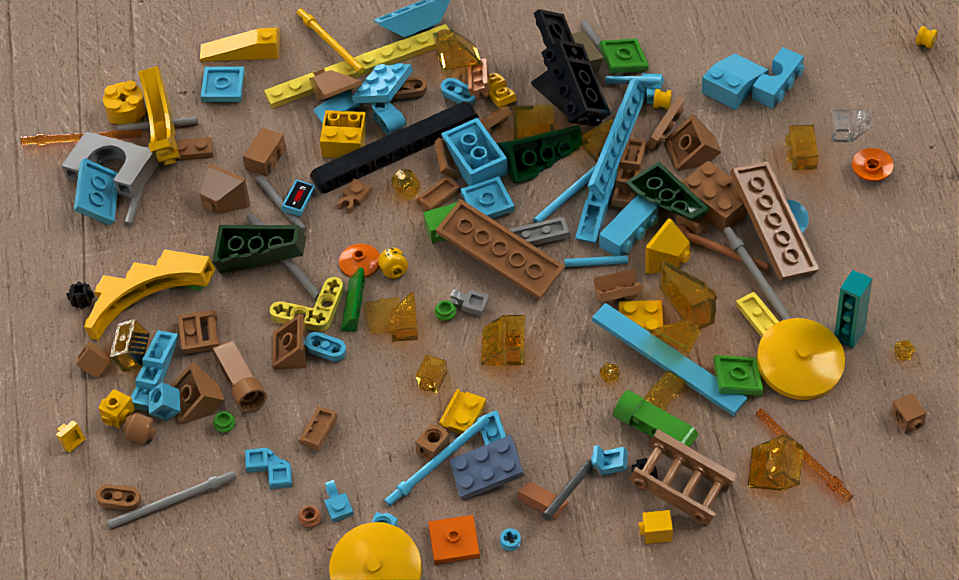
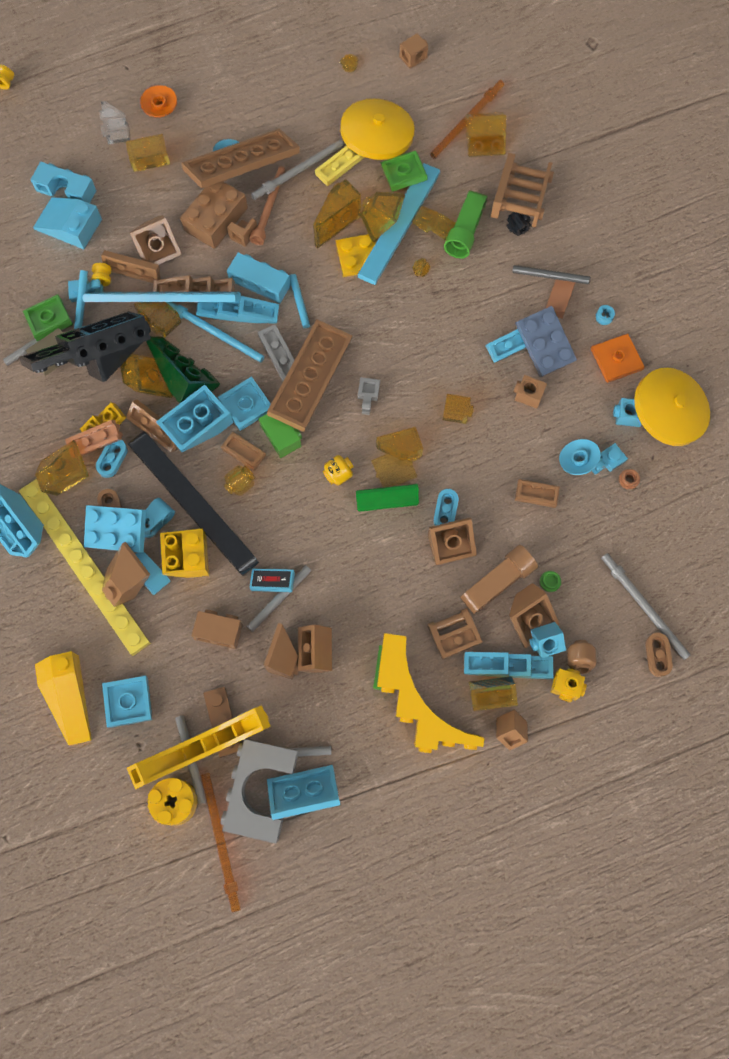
camera: 105 degrees left, 20 degrees up
(70, 436) = (605, 724): yellow tile -> none
(80, 295) = (443, 766): black gear -> none
(213, 214) = (314, 649): none -> medium nougat brick
(256, 245) = (348, 601): dark green wedge -> none
(265, 460) = (579, 535): medium azure tile -> none
(291, 265) = (317, 607): light grey bar -> none
(312, 23) = (26, 632): yellow bar -> none
(317, 313) = (405, 528): light yellow beam -> none
(345, 471) = (580, 450): none -> medium azure dish
(355, 193) = (255, 527): medium nougat plate -> none
(359, 256) = (337, 515): orange dish -> none
(404, 488) = (579, 406): medium azure bar -> none
(445, 160) = (201, 450): medium nougat plate -> none
(445, 310) = (381, 414): bright green plate -> none
(462, 411) = (488, 378): yellow plate -> none
(504, 341) = (410, 352): clear yellow slope -> none
(609, 460) = (511, 250): medium azure bracket -> none
(616, 286) = (331, 274): medium nougat bracket -> none
(656, 527) = (566, 206): yellow brick -> none
(667, 191) = (220, 248): dark green wedge -> none
(668, 246) = (283, 240): yellow slope -> none
(853, 308) = (337, 76): teal brick -> none

